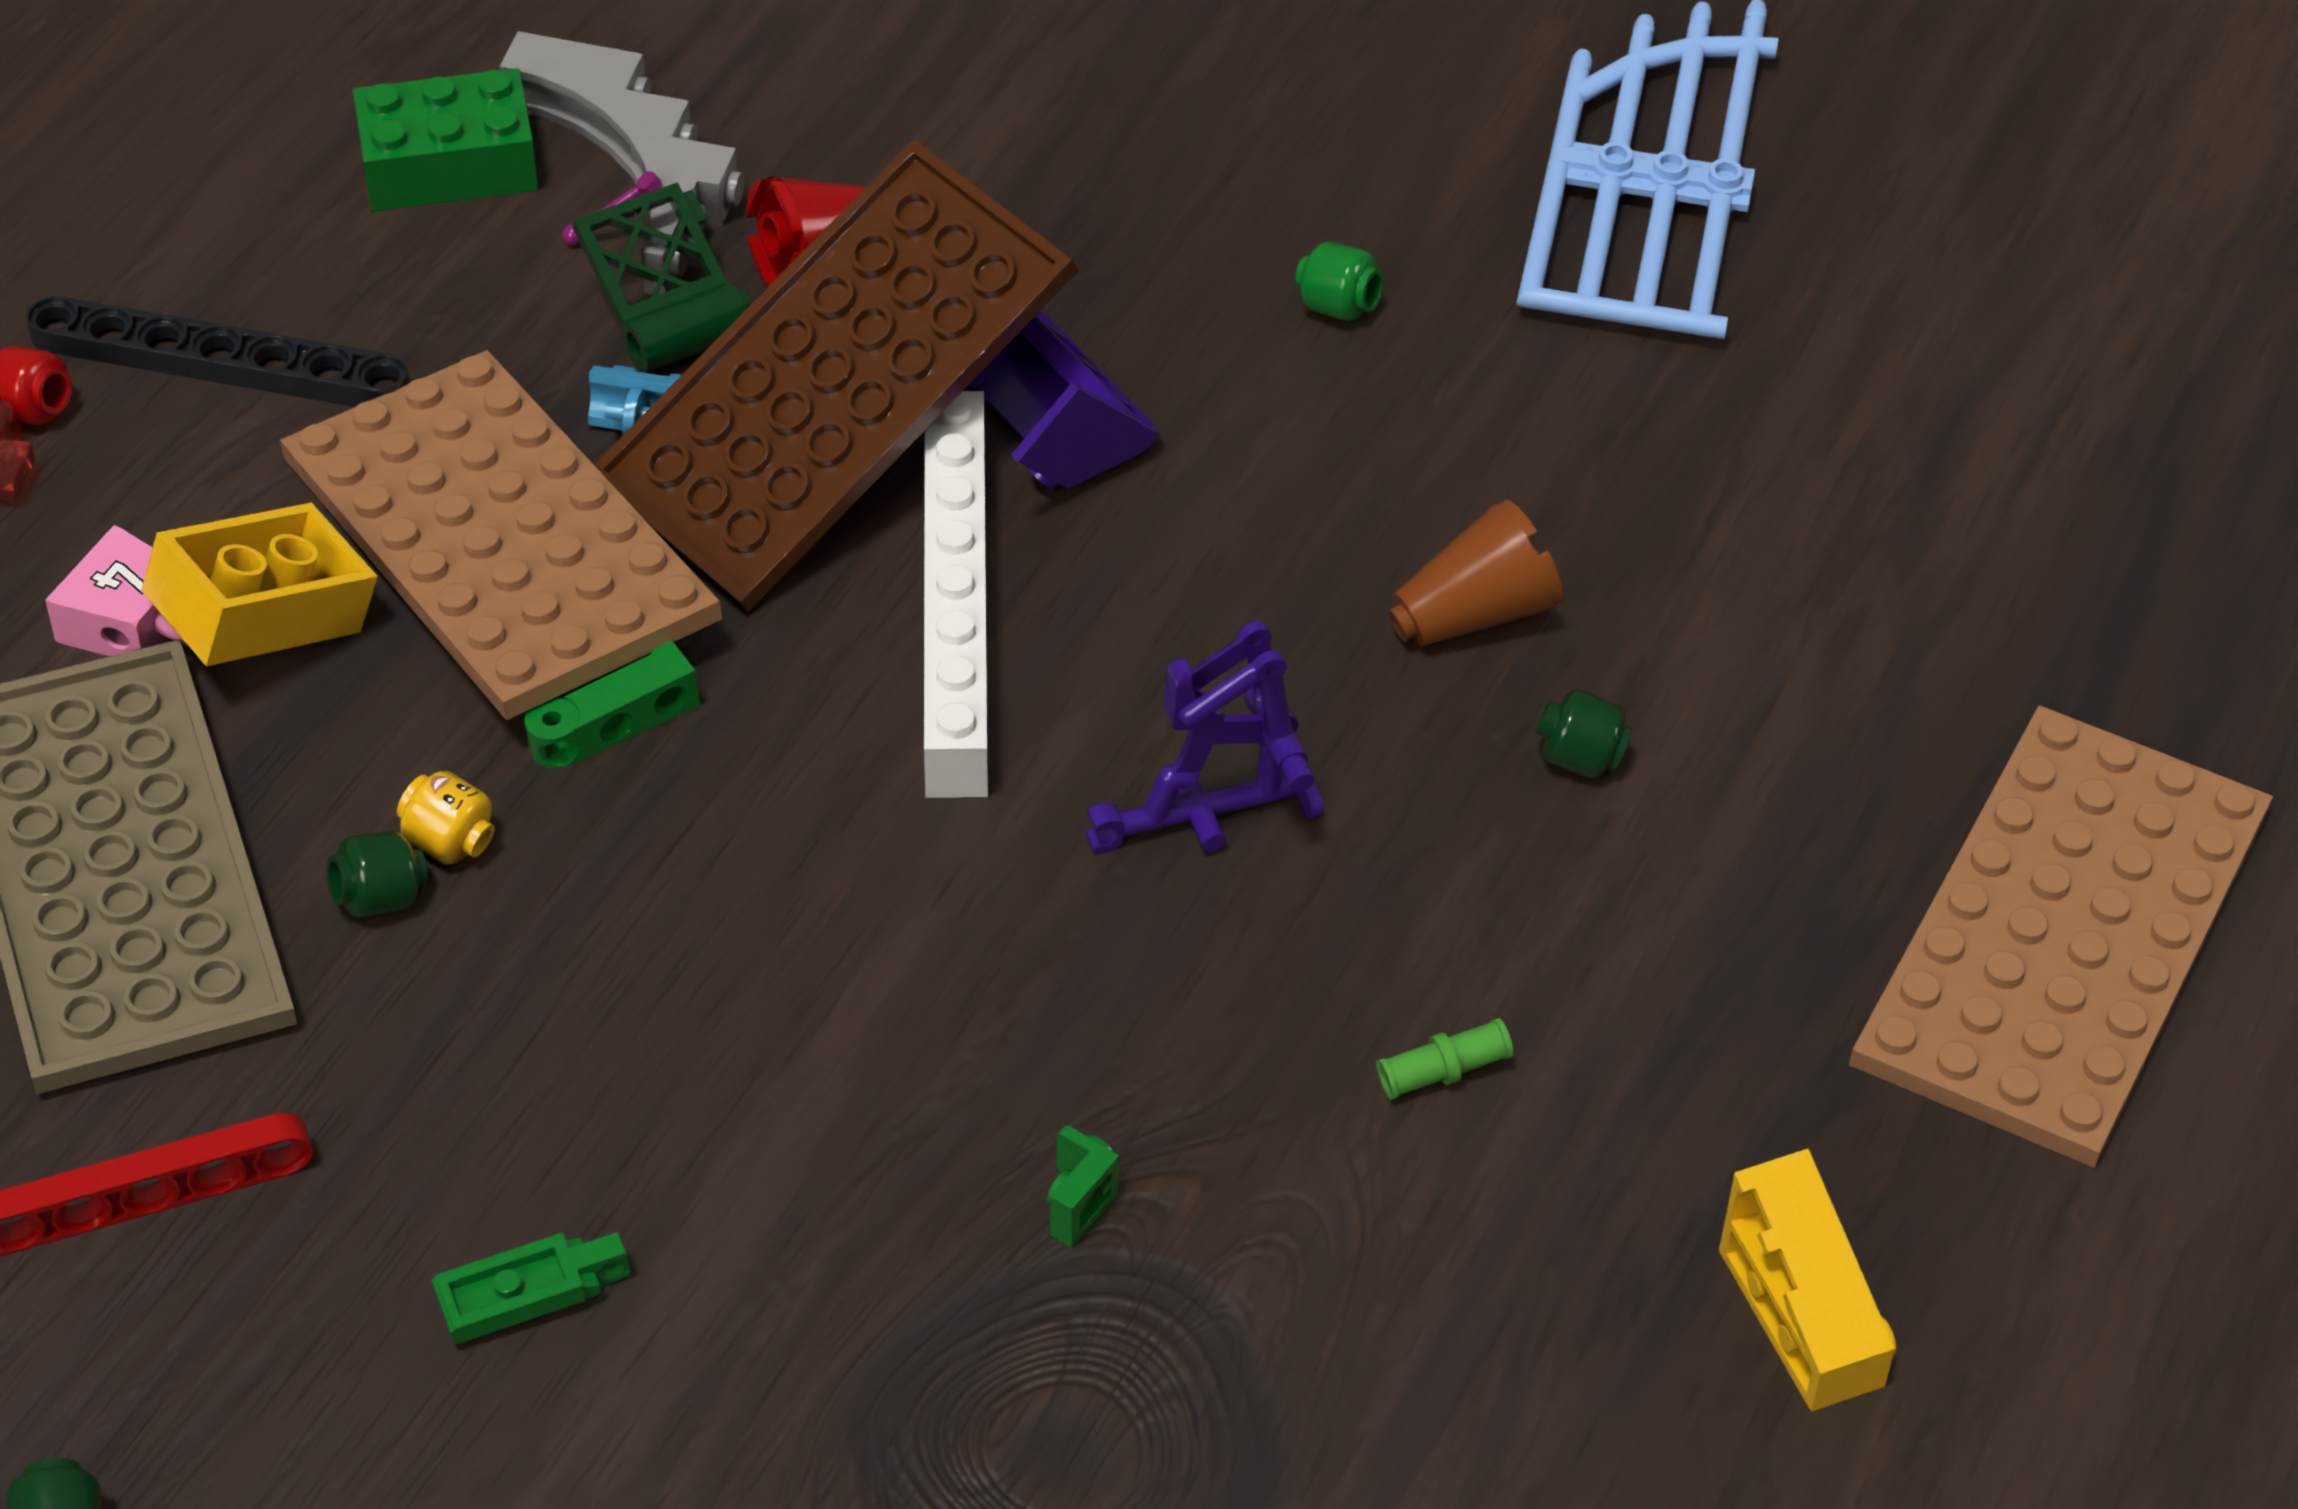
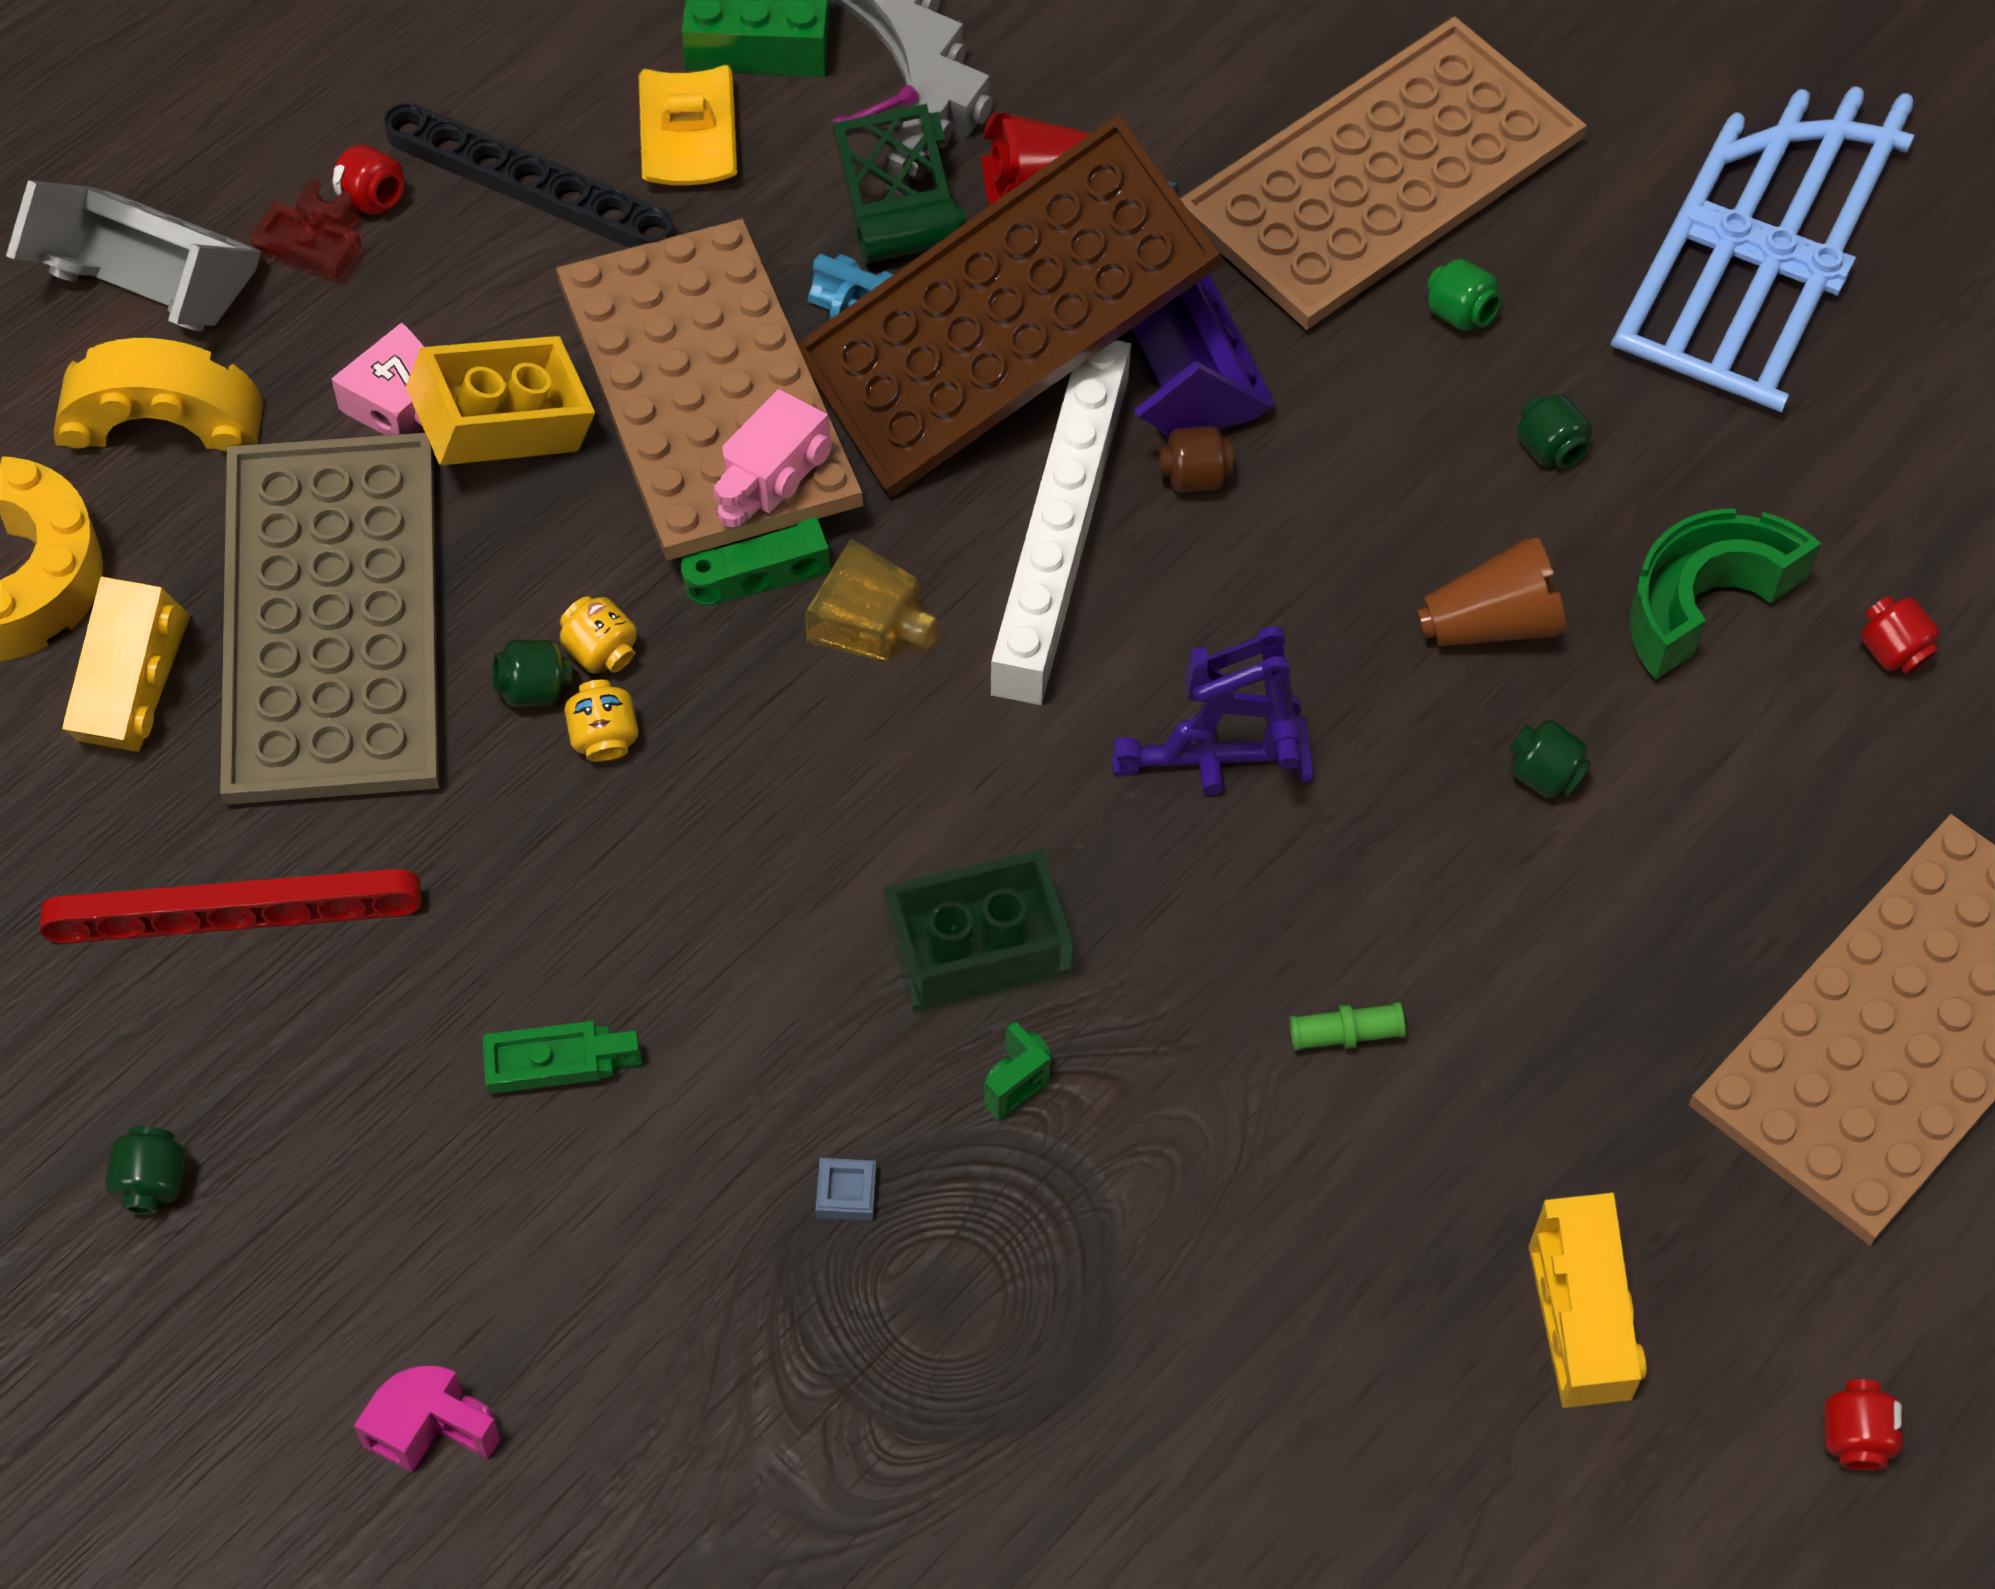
camera: 15 degrees right, 10 degrees up
(394, 266) = (687, 126): none -> yellow shield
(476, 909) = (601, 721): none -> yellow head
(606, 577) = (770, 457): none -> bright pink hinge
(757, 727) = (867, 607): none -> clear yellow torso
(915, 1357) = (846, 1189): none -> sand blue tile
(991, 1040) = (977, 930): none -> clear green brick
(1091, 502) = (1196, 459): none -> reddish brown head
(1213, 172) = (1381, 171): none -> medium nougat plate
(1483, 402) = (1554, 431): none -> dark green head
(1701, 488) = (1706, 553): none -> green brick
(1926, 534) = (1900, 634): none -> red head
(2151, 1348) = (1863, 1426): none -> red head

